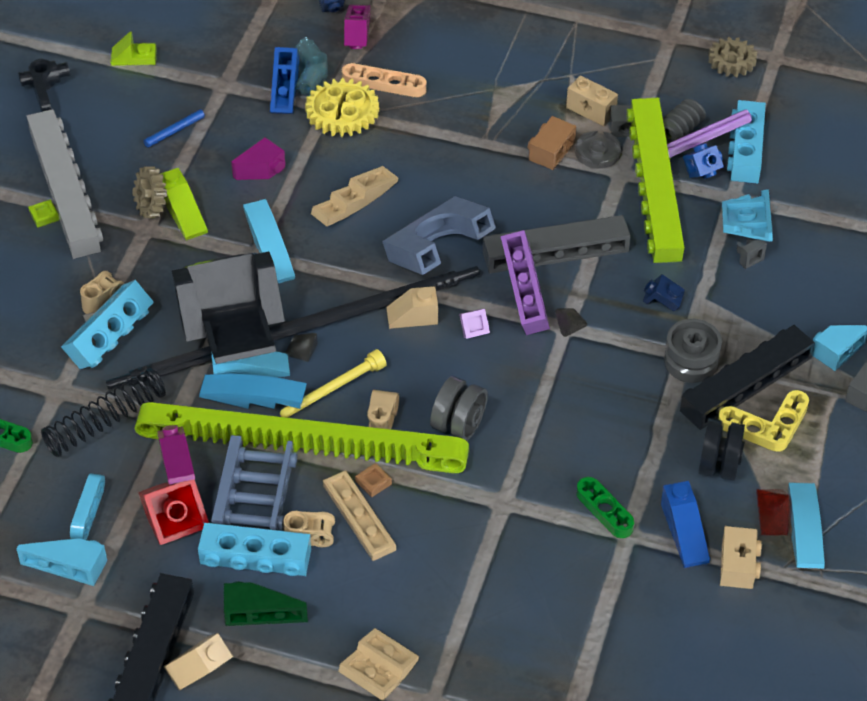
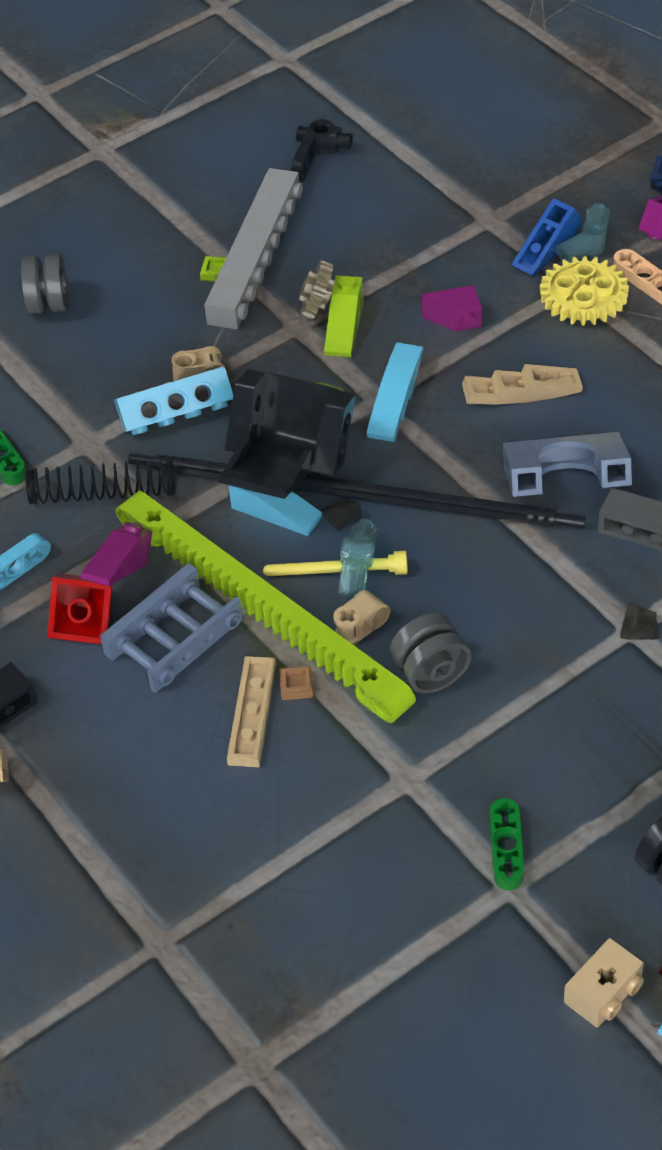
camera: 40 degrees right, 0 degrees up
(128, 53) = (426, 153): lime slope -> none
(174, 128) = (401, 241): blue bar -> none
(244, 540) = (121, 689): medium azure brick -> none
(254, 389) = (255, 531): dark azure slope -> none
(257, 605) = (70, 741): dark green slope -> none
(311, 524) = (191, 698): tan piece -> none
(349, 369) = (356, 558): none -> clear light blue piece
(378, 664) = (140, 872): tan slope -> none
(414, 308) = (483, 529): tan slope -> none
(474, 323) = (531, 574): lavender plate -> none
(525, 282) = (610, 556): medium lavender brick -> none
(685, 523) = (575, 911): blue slope -> none

